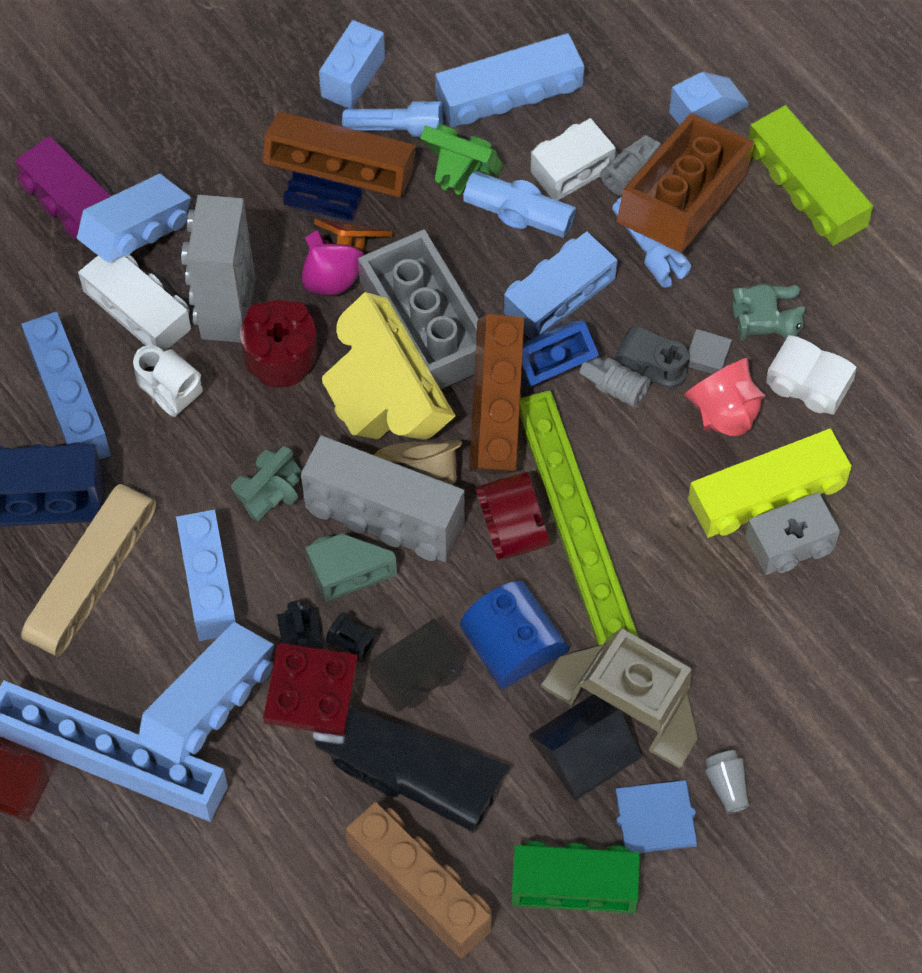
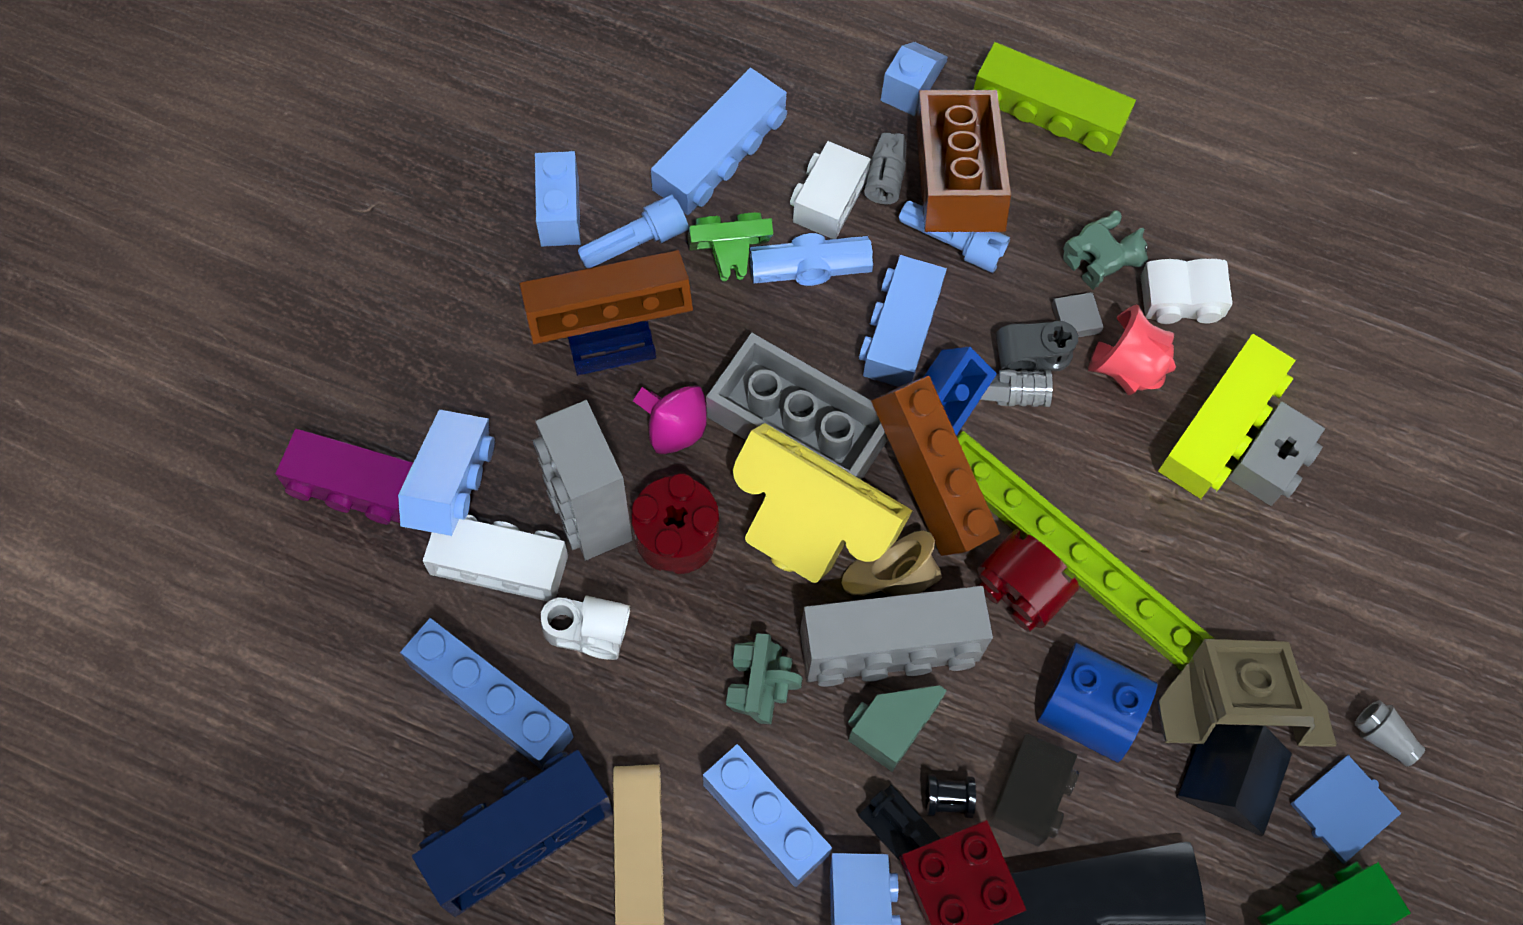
camera: 35 degrees left, 5 degrees up
(351, 233) = (669, 372): orange piece -> none

